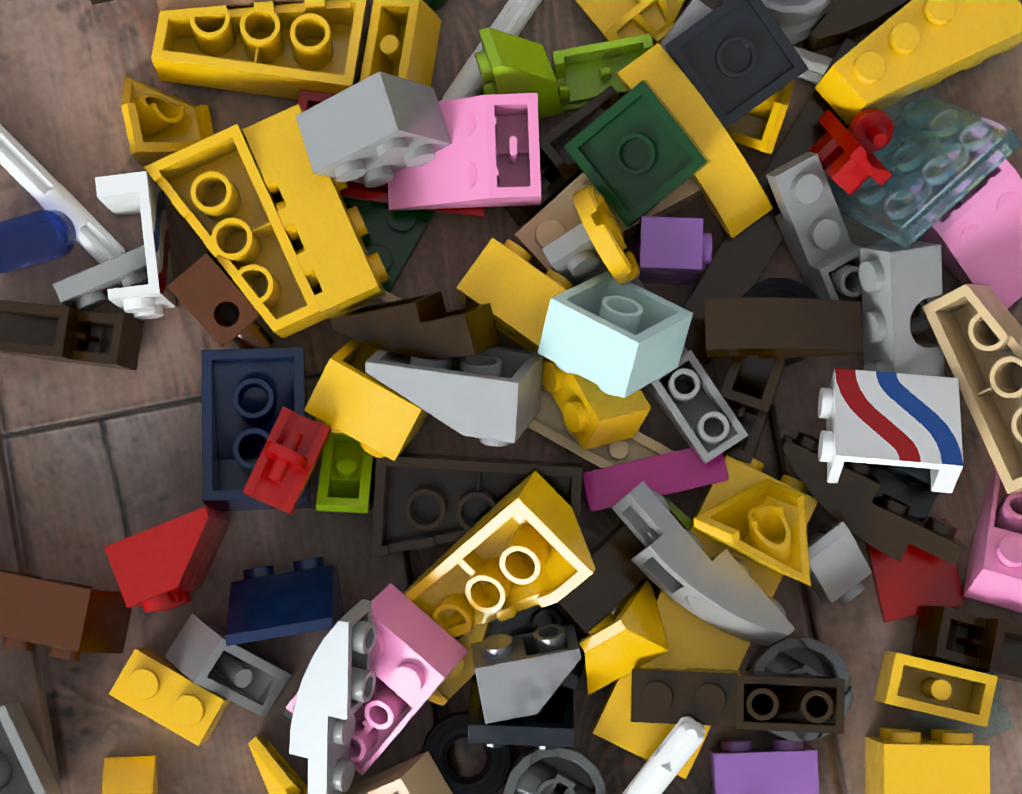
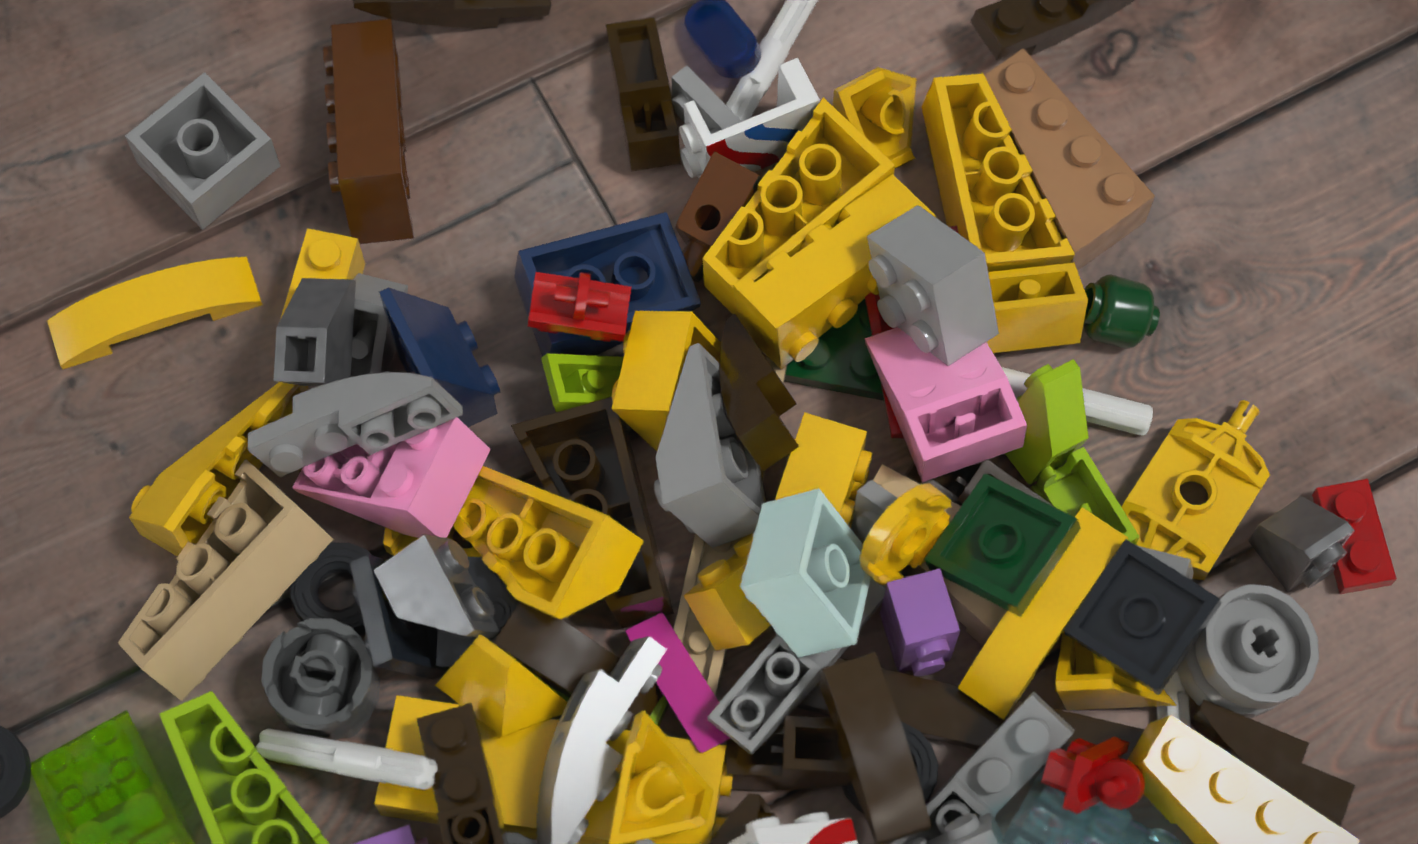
camera: 75 degrees right, 15 degrees down
(168, 560) = (452, 238): red slope -> none
(233, 714) = (316, 333): none -> flat silver slope

